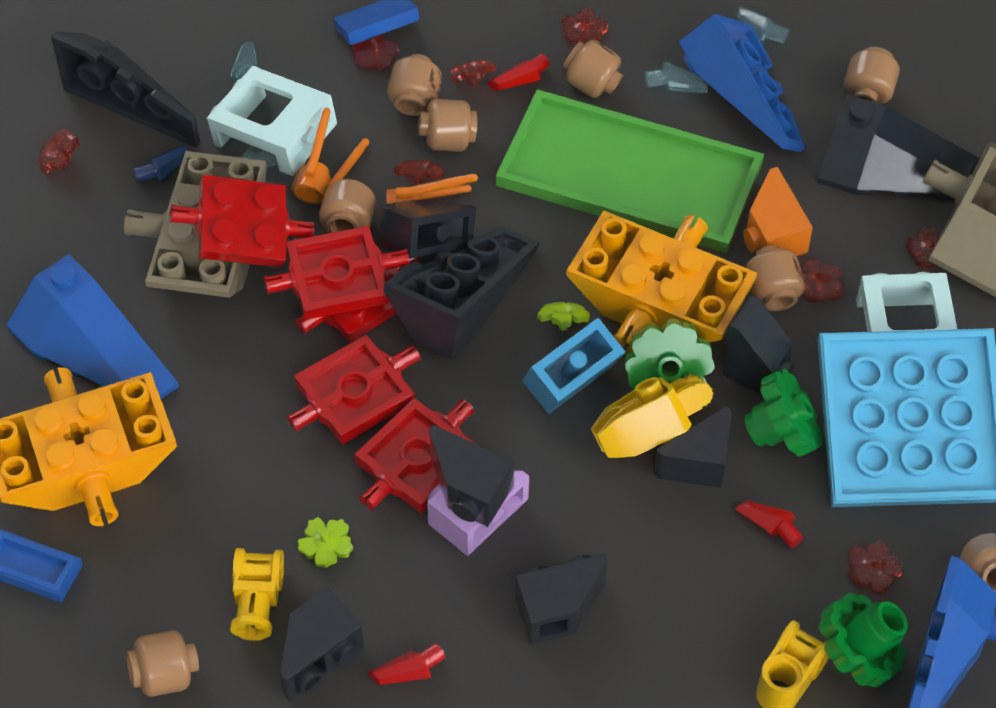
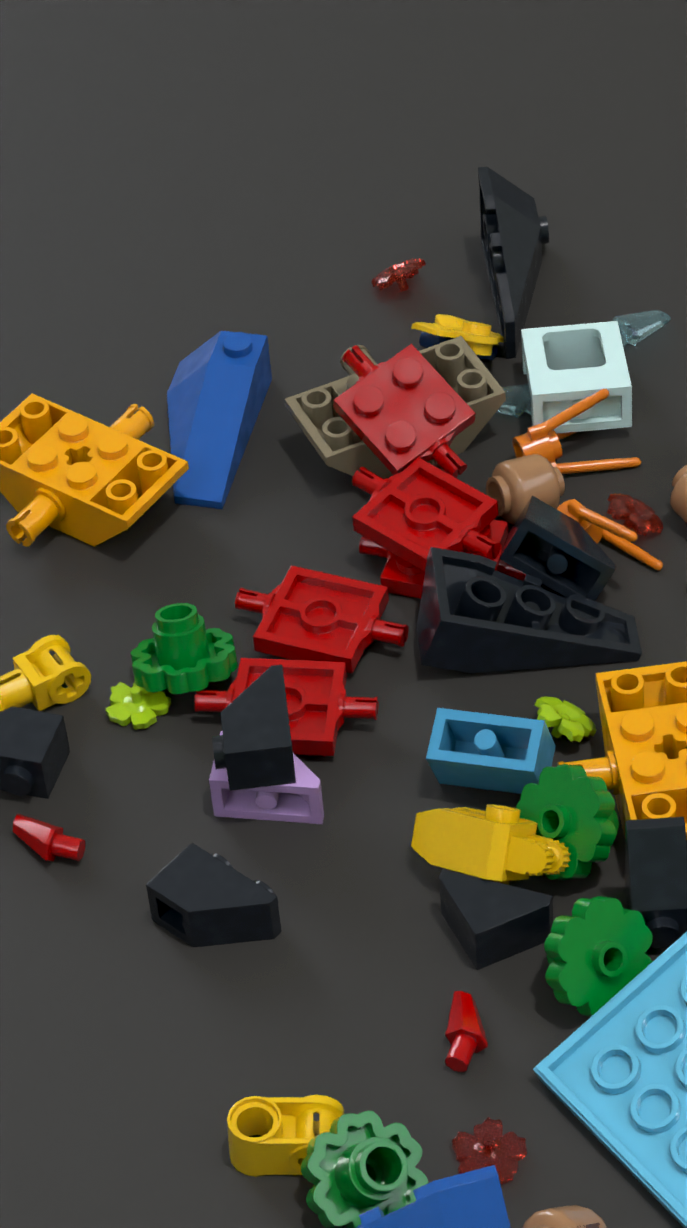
camera: 60 degrees right, 10 degrees down
(170, 149) = (476, 334): none -> yellow plate
(322, 487) = (182, 653): none -> green plant

